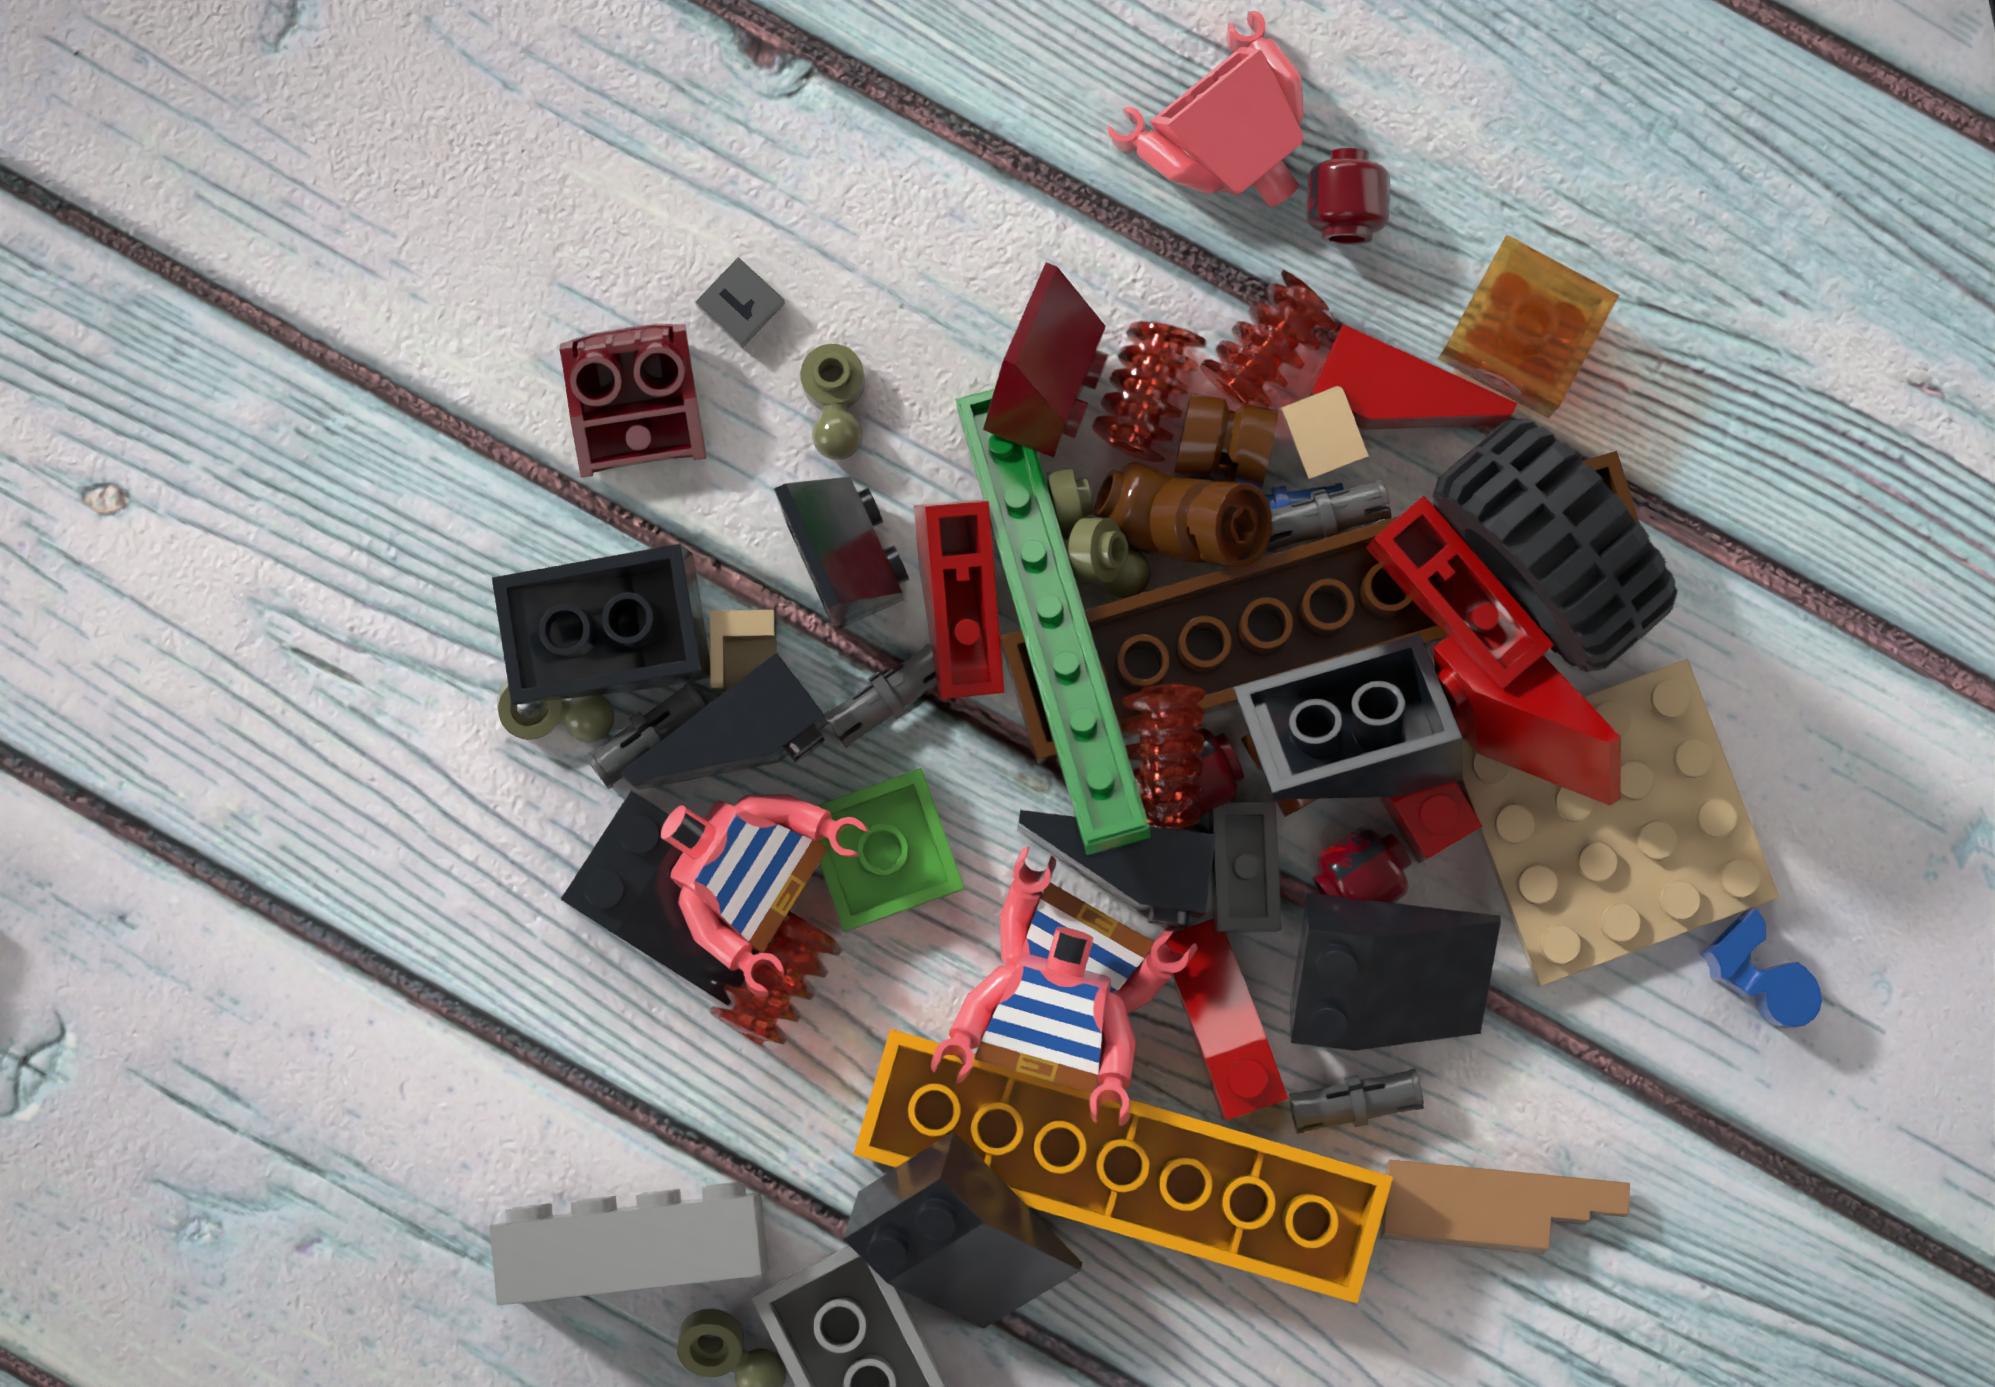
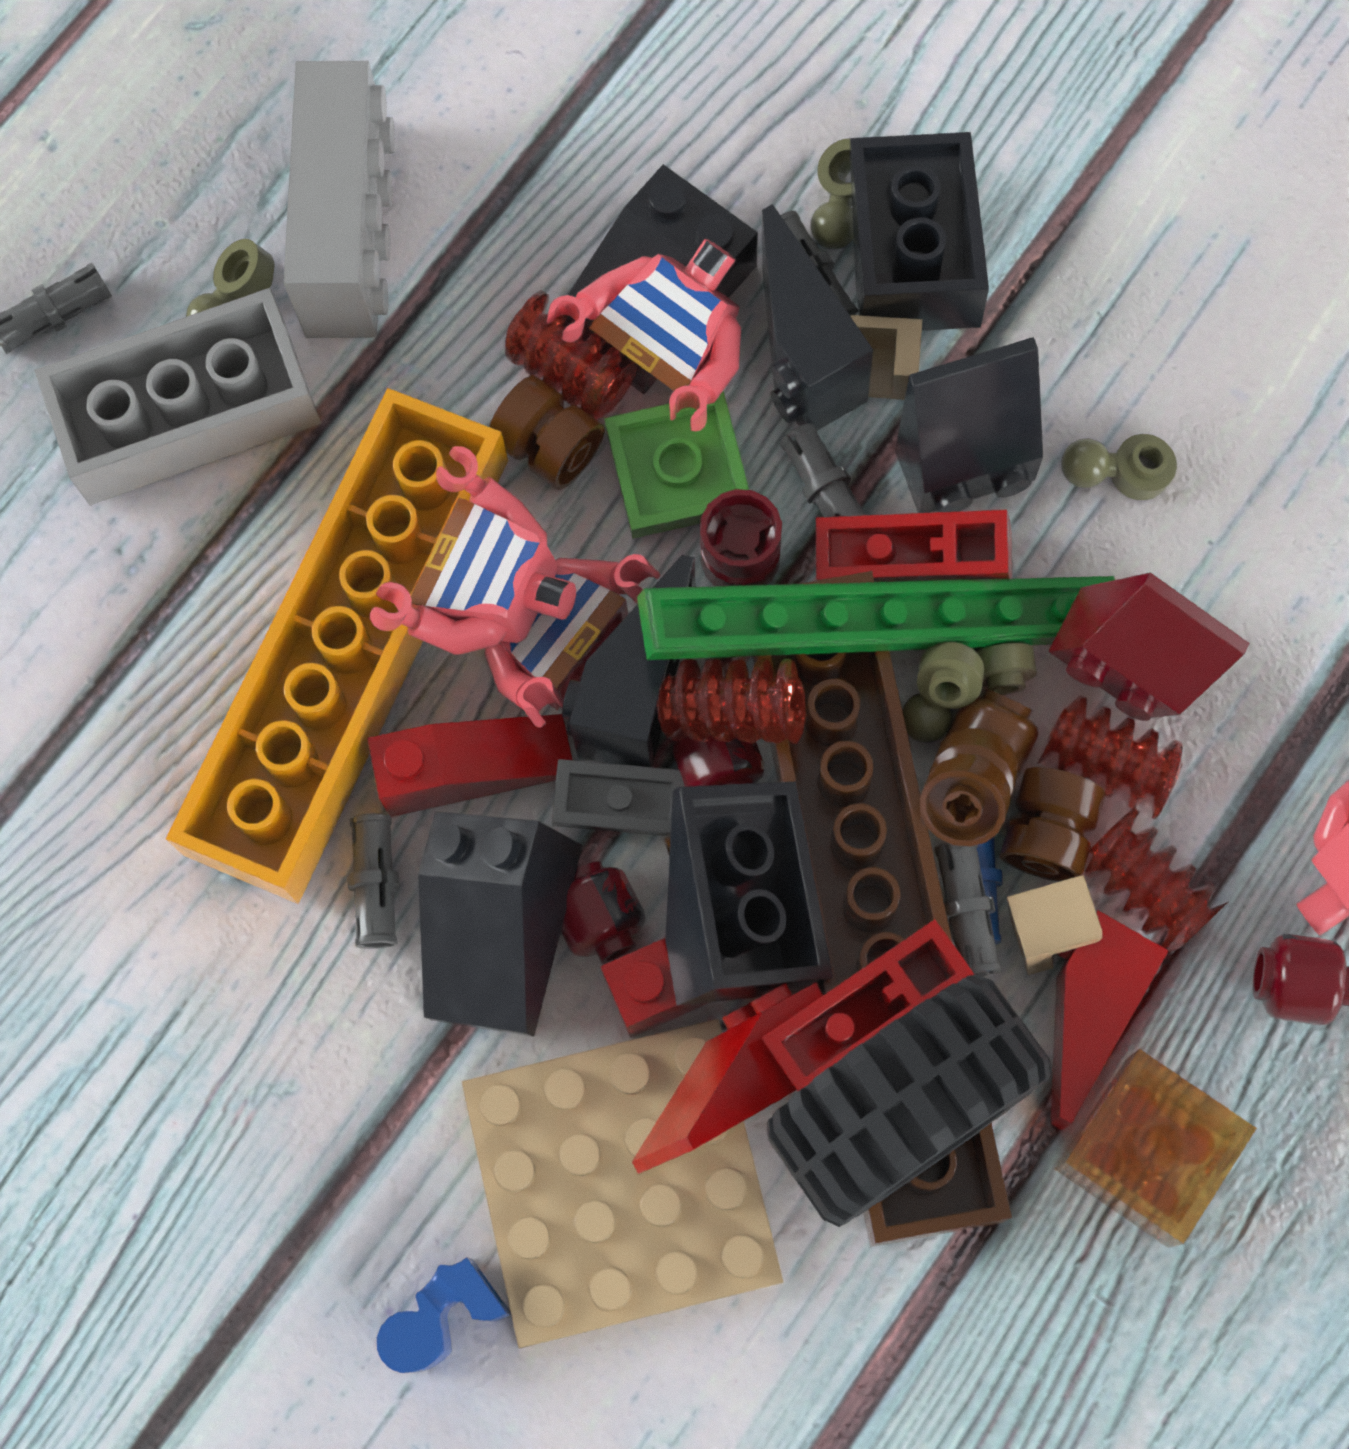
camera: 105 degrees right, 10 degrees down
(632, 397) = (1134, 280): dark red slope -> none
(740, 302) = (1222, 391): dark grey tile -> none
(866, 989) = (552, 437): none -> reddish brown wheel
(956, 1235) = (296, 470): black slope -> none
(968, 773) = (740, 539): none -> dark red wheel
(1491, 1205) = (250, 1003): medium nougat piece -> none

